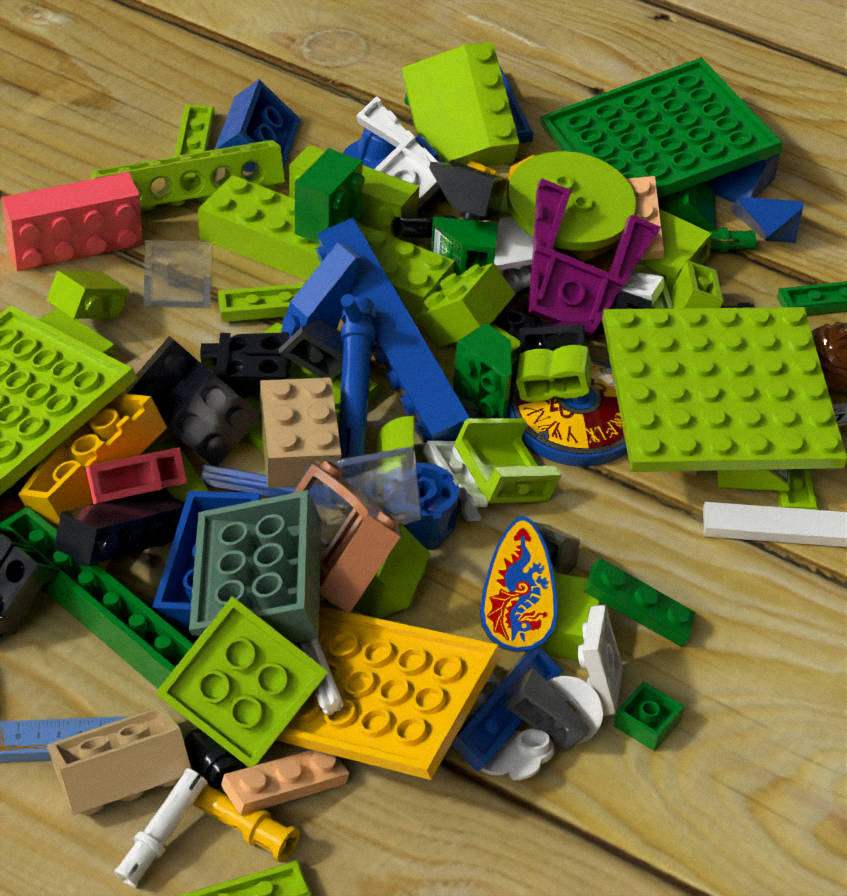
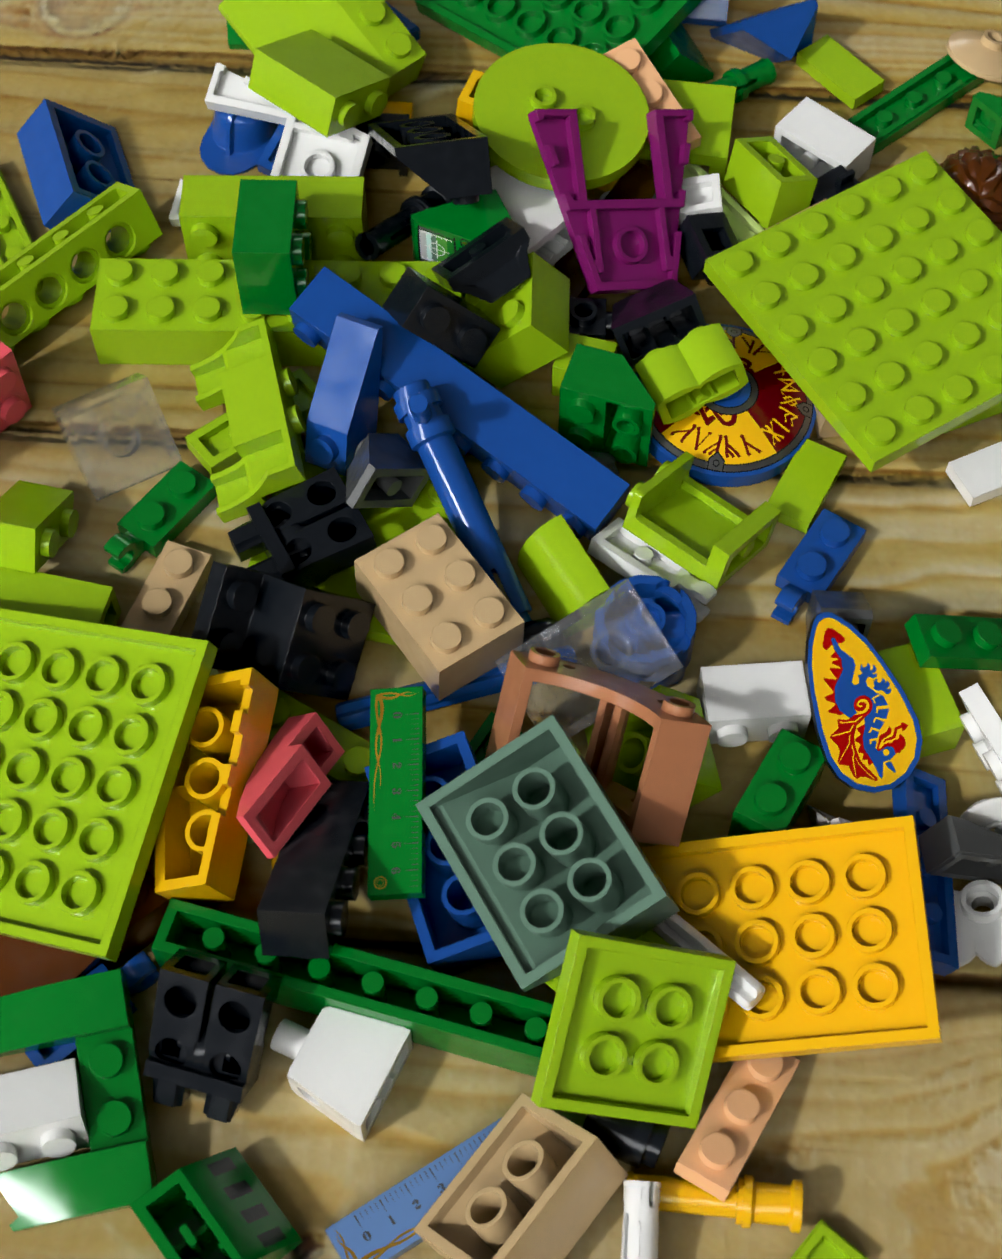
camera: 25 degrees left, 15 degrees up
(71, 646) = (344, 1064): none -> white torso
(180, 325) = (160, 516): none -> green plate
(206, 492) = (395, 787): none -> green tile
(265, 290) = (260, 417): none -> lime bracket
(408, 275) = (441, 317): none -> black brick
(431, 128) = (319, 82): none -> lime brick
(451, 613) = (779, 787): none -> green brick
(457, 571) = (754, 701): none -> white brick
(460, 259) = (489, 263): none -> black slope
(580, 516) = (816, 562): none -> blue plate
(596, 477) = (806, 484): none -> lime tile
(753, 284) = (824, 140): none -> white brick
(804, 260) = (840, 72): none -> lime tile

